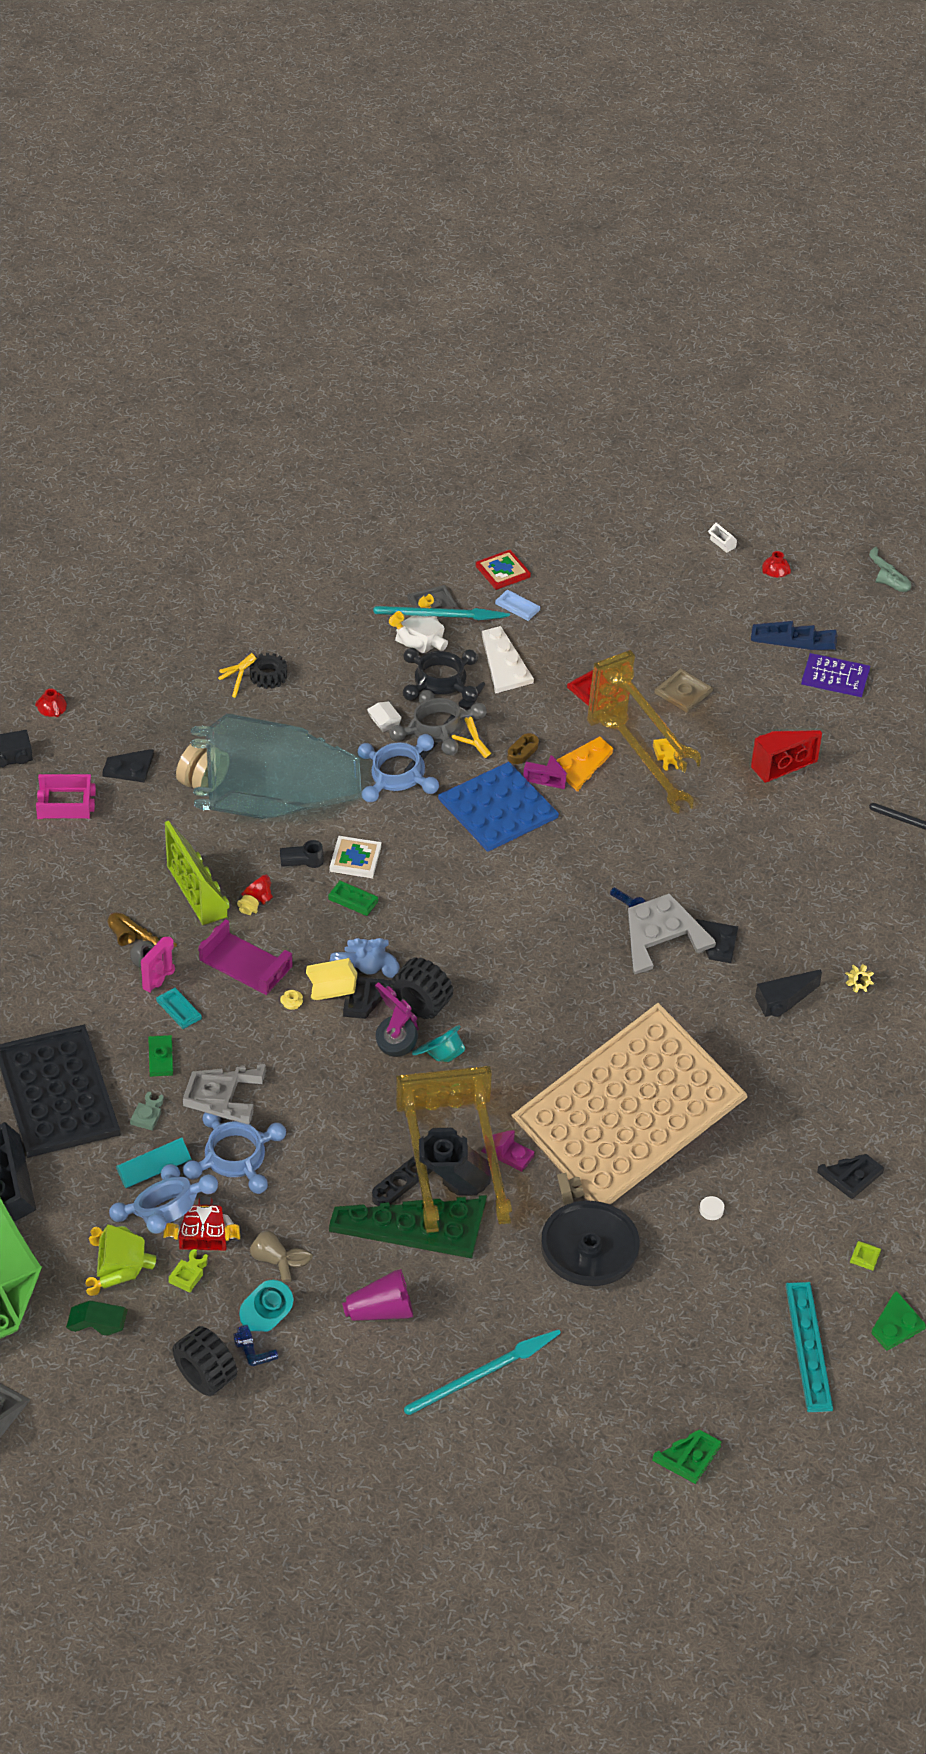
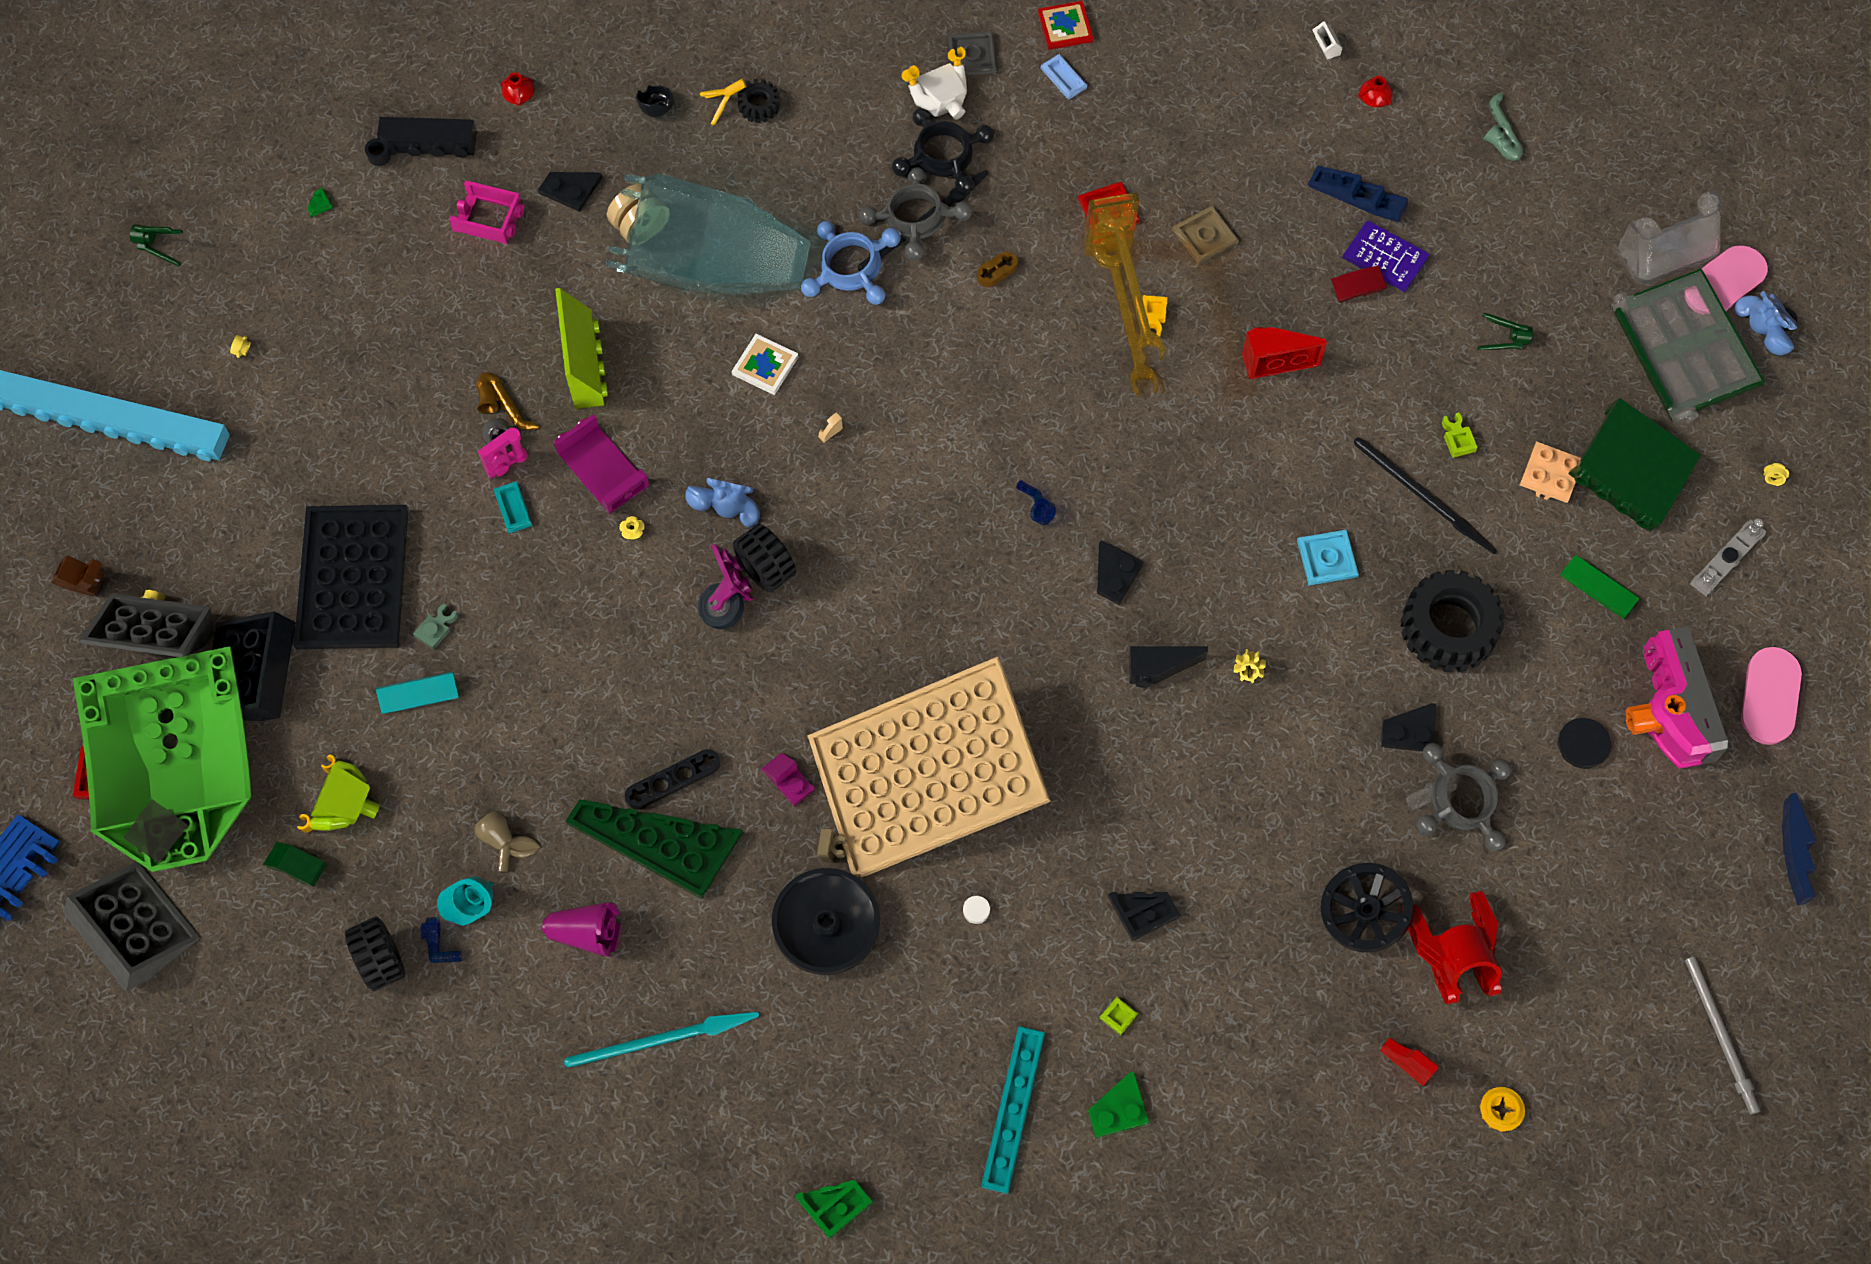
camera: 20 degrees right, 20 degrees up
(160, 1056) = (473, 561): green plate -> none
(168, 1188) = (400, 734): medium blue piece -> none
(179, 687) = (647, 99): none -> black hair
(188, 1273) = (404, 836): lime plate -> none
(203, 1227) = (436, 785): torso -> none
(214, 1090) = (507, 621): light grey wing -> none
(246, 1167) = (515, 745): medium blue piece -> none
(248, 905) = (628, 398): light yellow plate -> none
(260, 889) = (645, 384): red piece -> none
(309, 854) = (706, 349): black piece -> none
(332, 979) = (679, 518): light yellow panel -> none
(353, 898) = (742, 417): green plate -> none
(364, 998) = (697, 549): black wing -> none
(384, 715) = (861, 190): white piece -> none
(435, 889) = (834, 427): none -> tan tile
(443, 1047) = (764, 630): teal piece -> none
(443, 1090) = (729, 690): clear yellow piece -> none
(454, 1161) = (718, 784): black brick -> none
(476, 613) = (1011, 79): teal piece -> none
(477, 742) = (948, 251): yellow plant -> none
(498, 806) = (942, 337): blue plate -> none
(504, 662) = (1020, 151): white wing -> none
(549, 775) = (1011, 312): magenta slope -> none
(584, 761) = (1054, 303): light orange wing -> none
(659, 922) = (1053, 537): light grey wing -> none
(822, 696) = (1358, 283): none -> dark red slope
(885, 891) = (1327, 557): none -> medium azure tile

